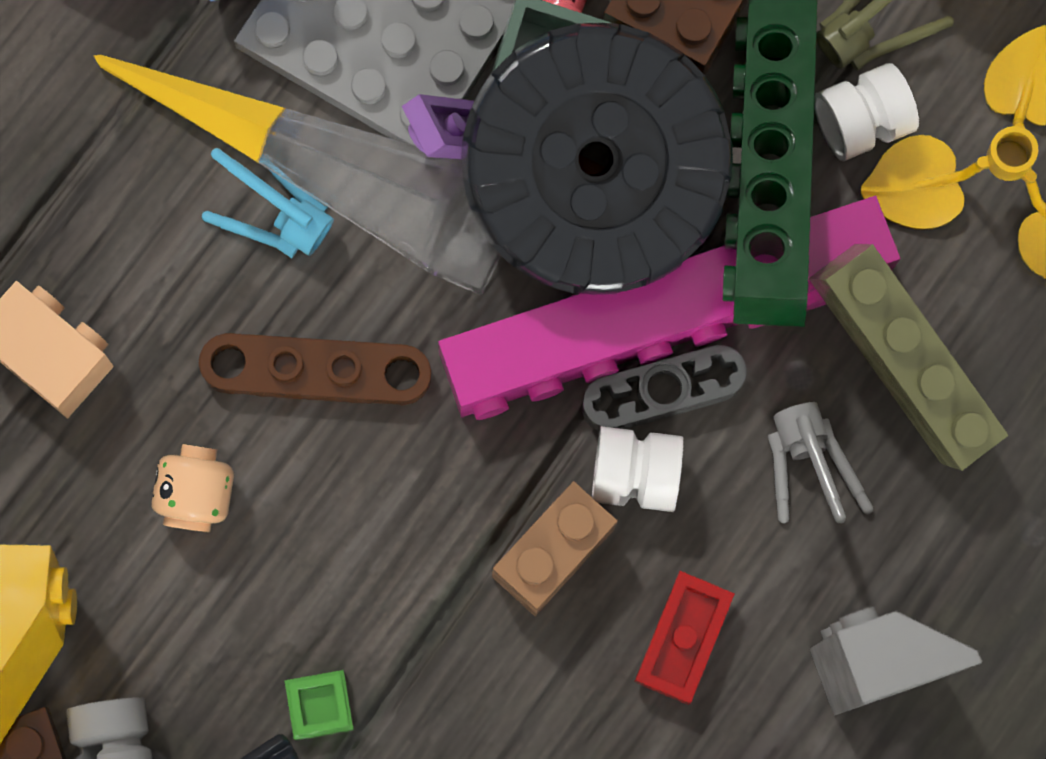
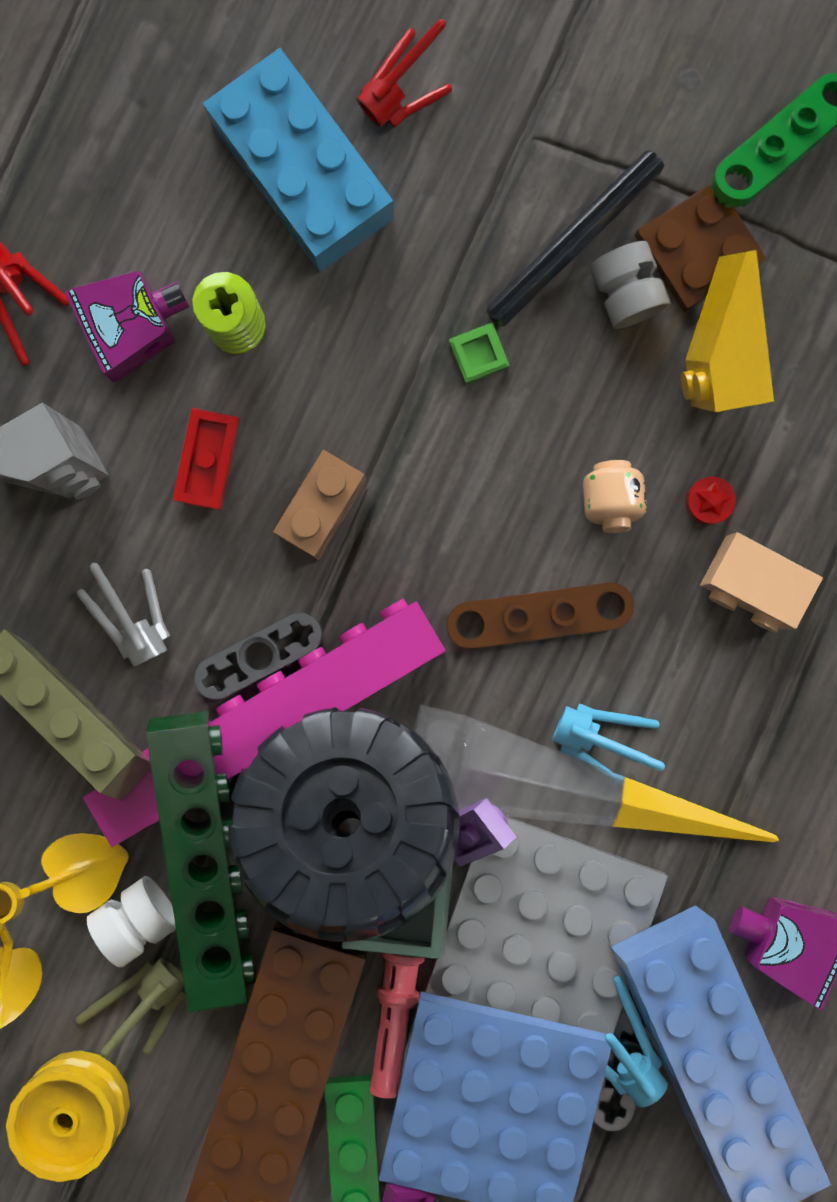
camera: 175 degrees right, 10 degrees up
(75, 464) = (710, 500): none -> red tile
(637, 469) = (264, 583): white wheel -> none

